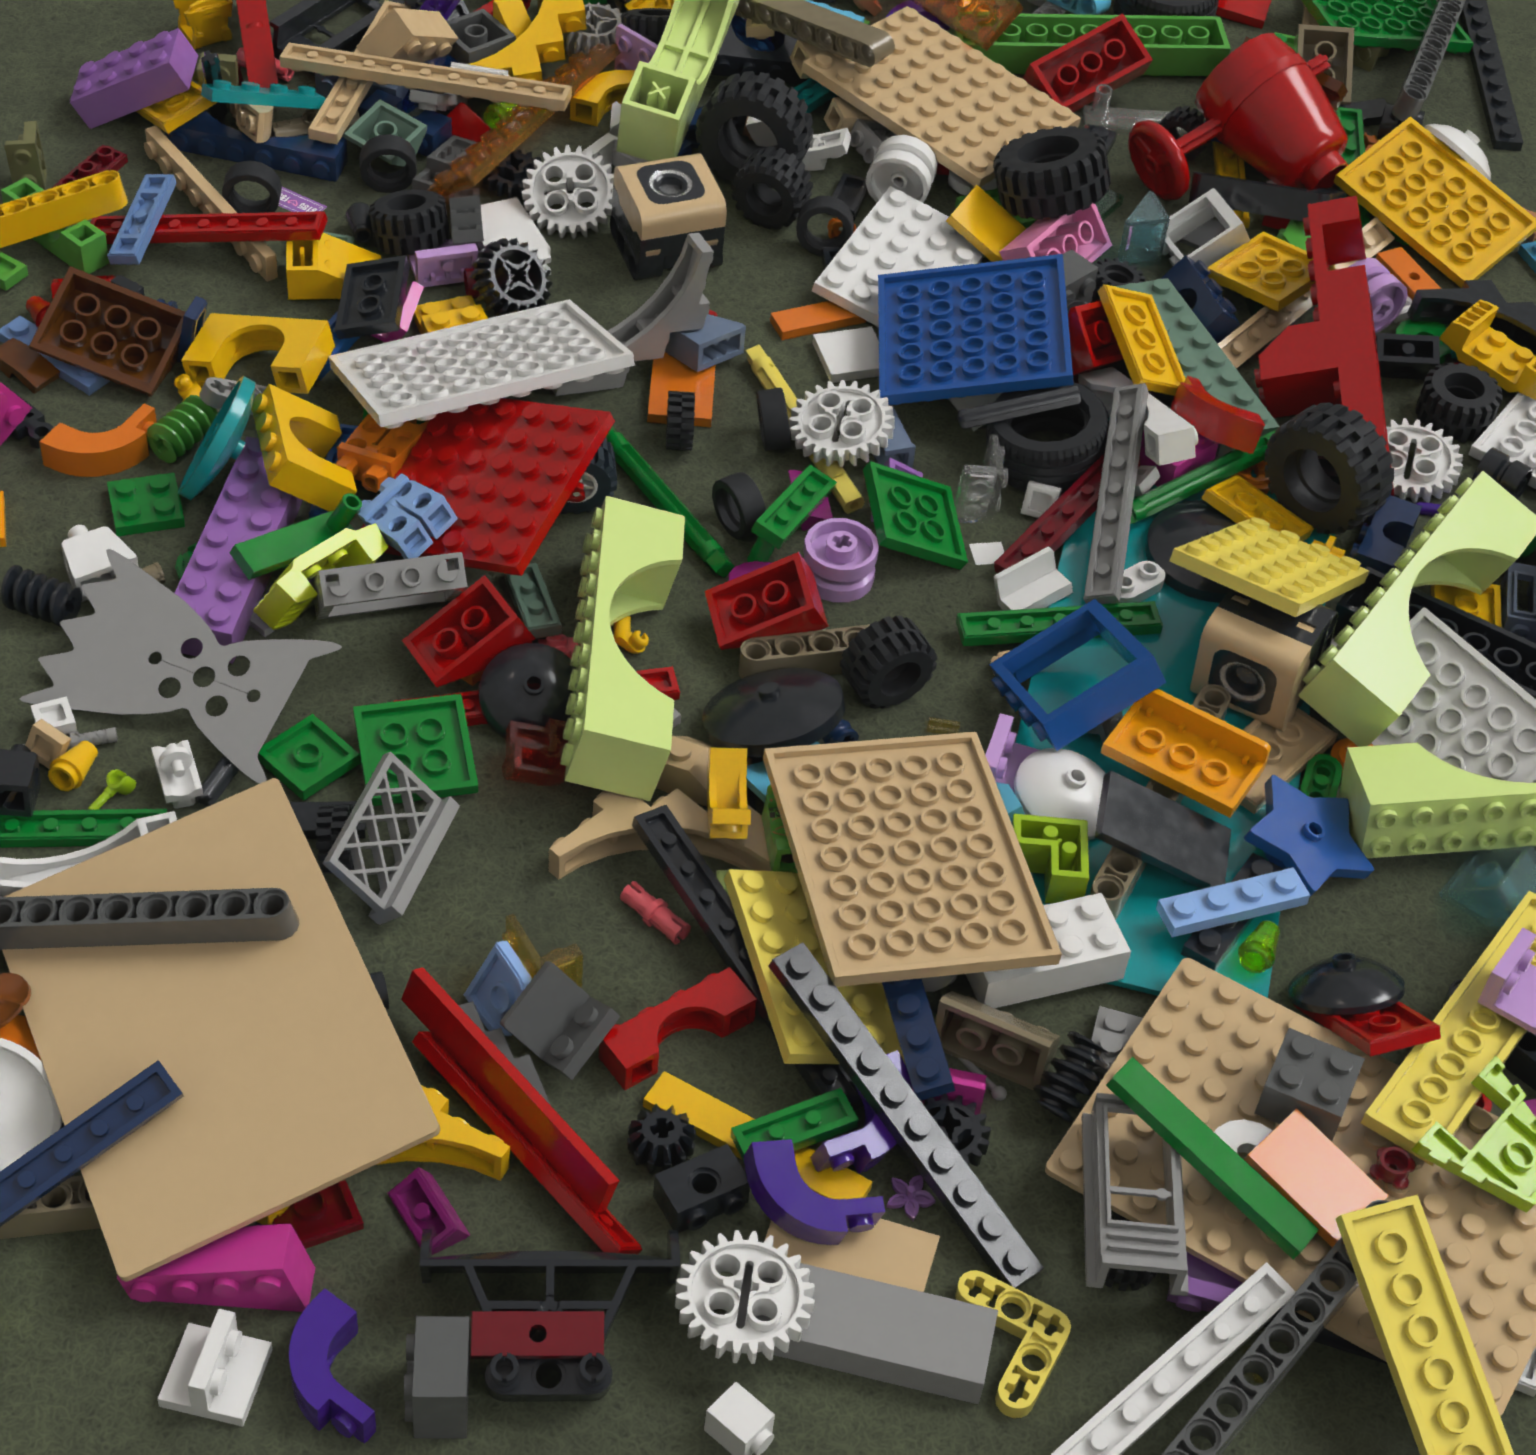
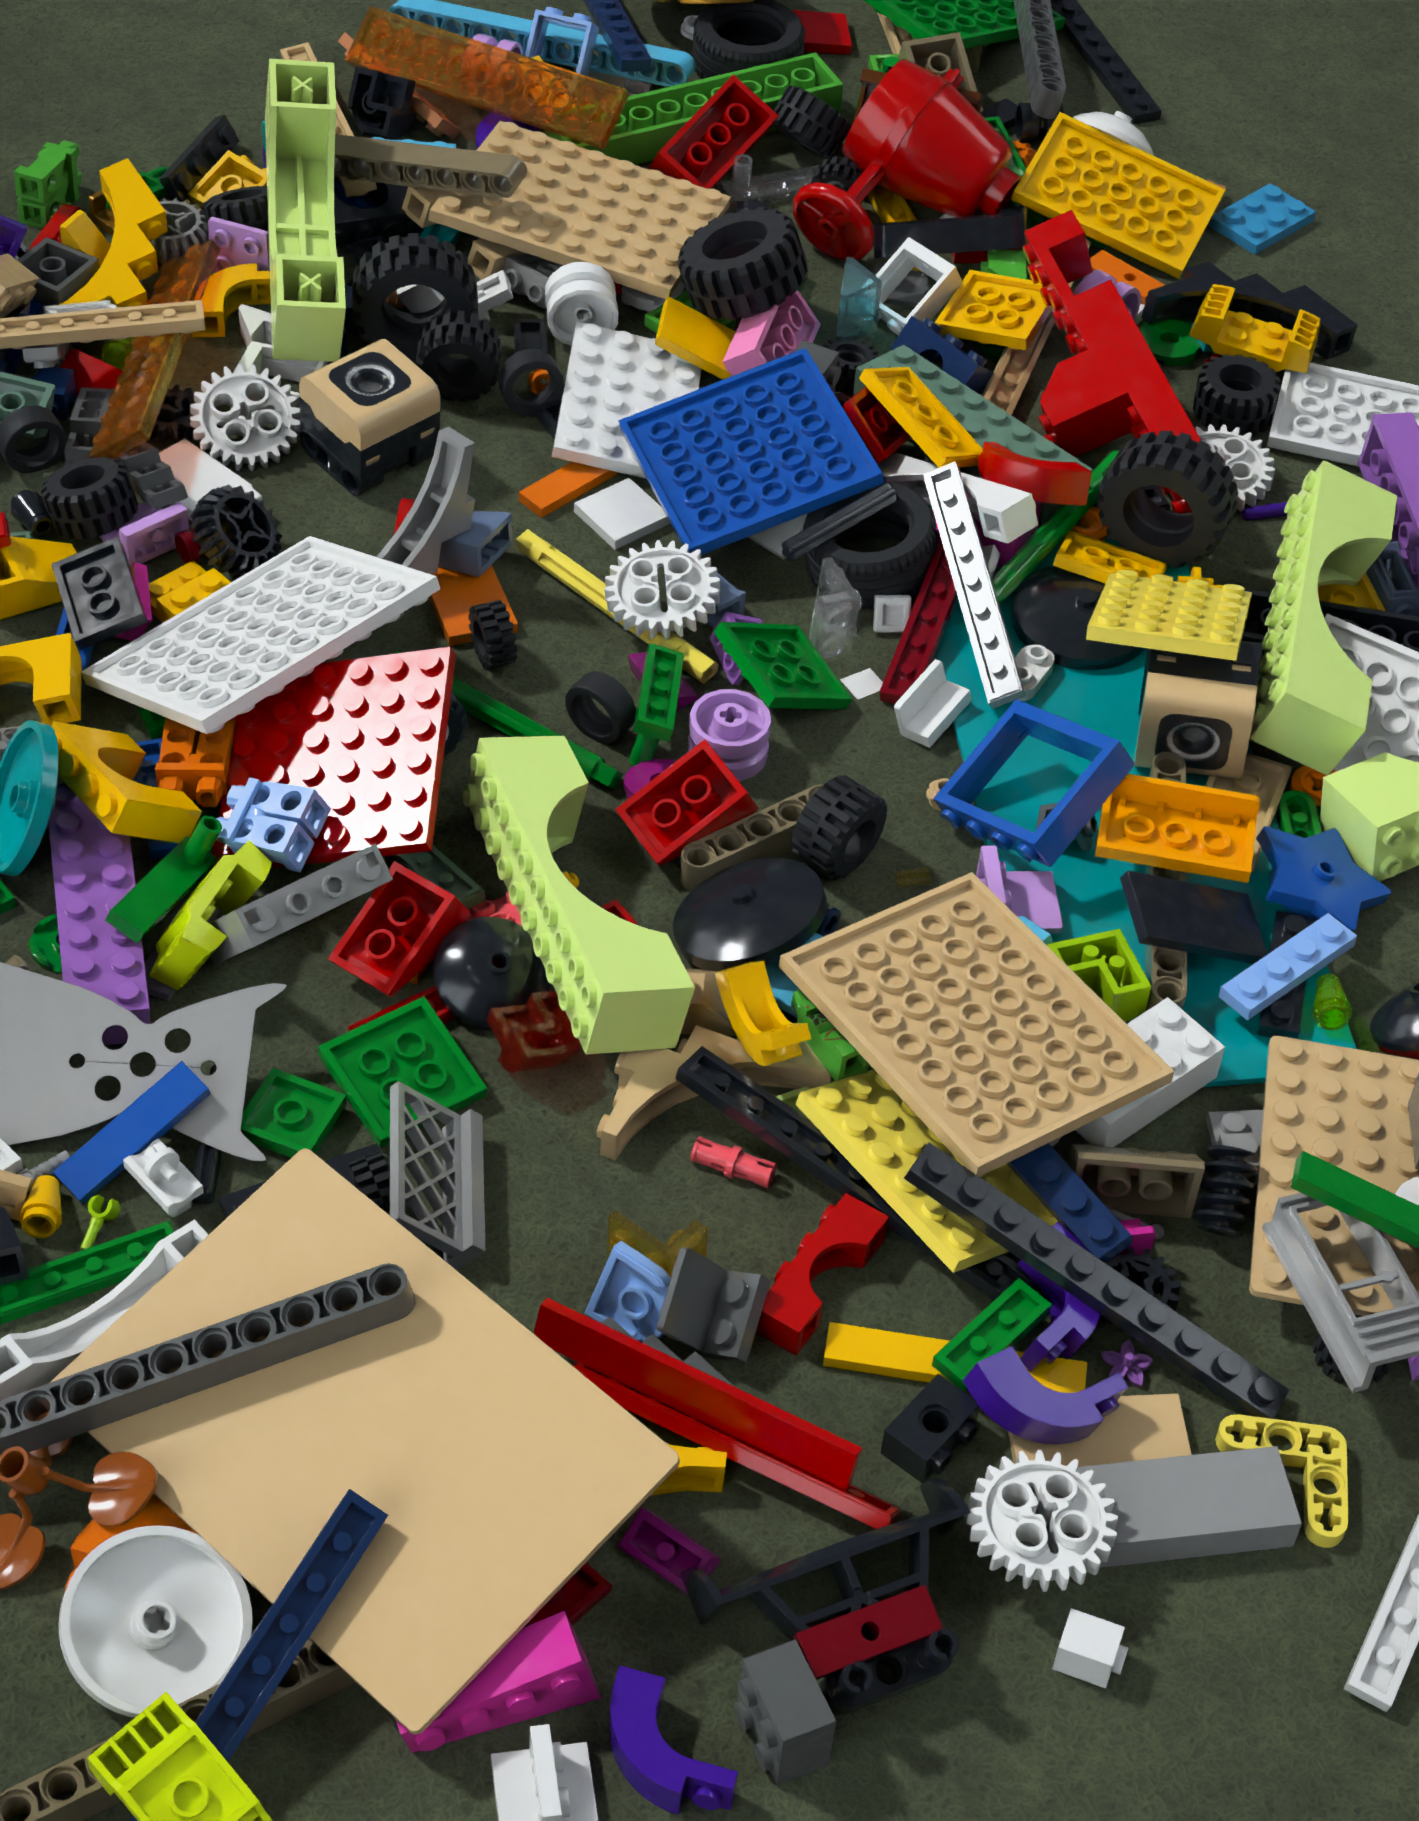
camera: 20 degrees left, 0 degrees up
(170, 726) = (131, 1132): none -> blue tile
(661, 1138) = (864, 1392): black gear -> none
(773, 419) = (588, 605): black tyre -> none
(1023, 624) = (958, 740): green tile -> none
(1060, 786) = (1072, 902): white dish -> none
(1180, 70) = (810, 122): none -> black tyre
(1386, 535) = (1235, 555): dark blue arch -> none
(1407, 355) = (1178, 357): black brick -> none
(1510, 475) = (1308, 455): black wheel -> none

